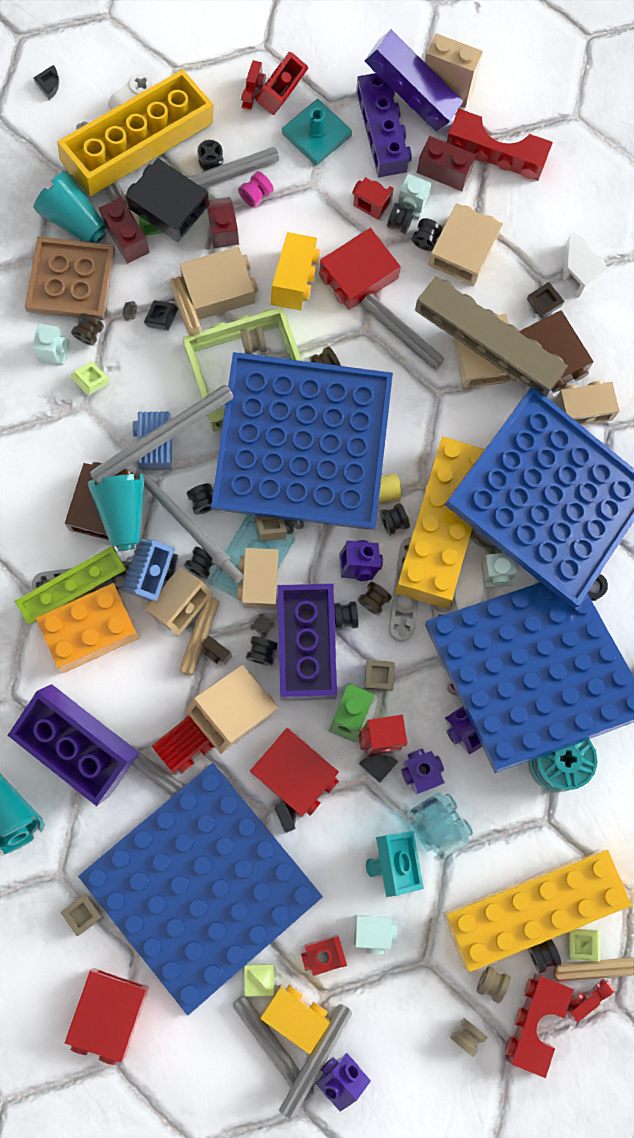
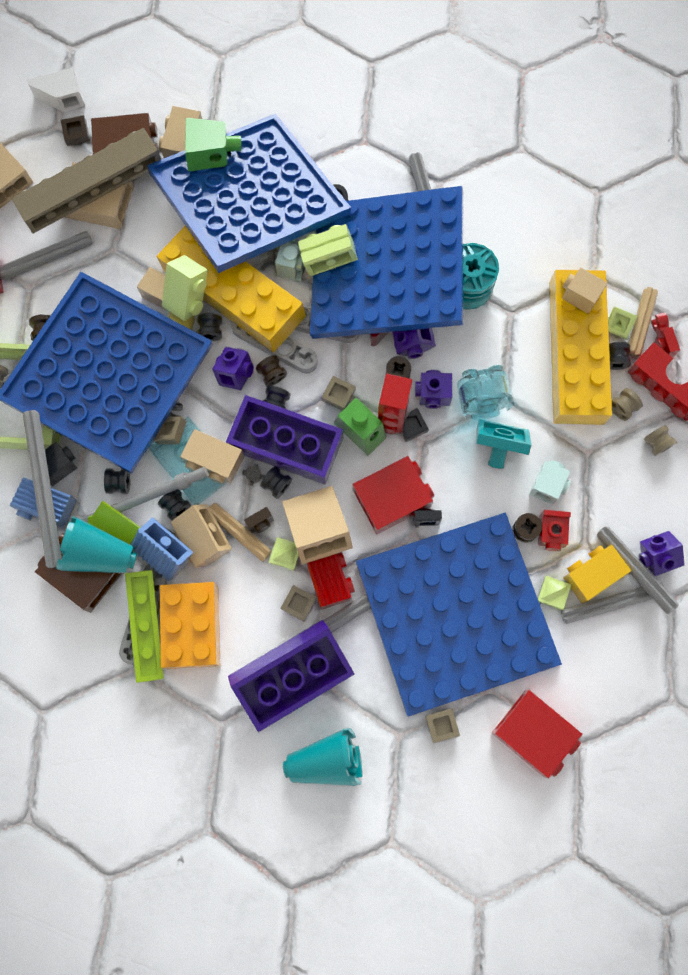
camera: 60 degrees left, 0 degrees up
(149, 723) = (298, 603): none -> dark tan plate
(156, 514) = (113, 523): none -> lime piece
(191, 687) = (284, 554): none -> yellowish green tile
(199, 437) = (59, 462): none -> black brick
(314, 921) = (523, 531): none -> dark brown wheel
(413, 453) = (152, 286): none -> tan brick
(417, 478) = (184, 287): none -> yellowish green brick
(425, 730) = (399, 362): none -> dark brown wheel
(521, 601) = (327, 249): none -> yellowish green brick
(581, 435) = (208, 144): none -> torso
(592, 888) = (583, 290): none -> tan brick

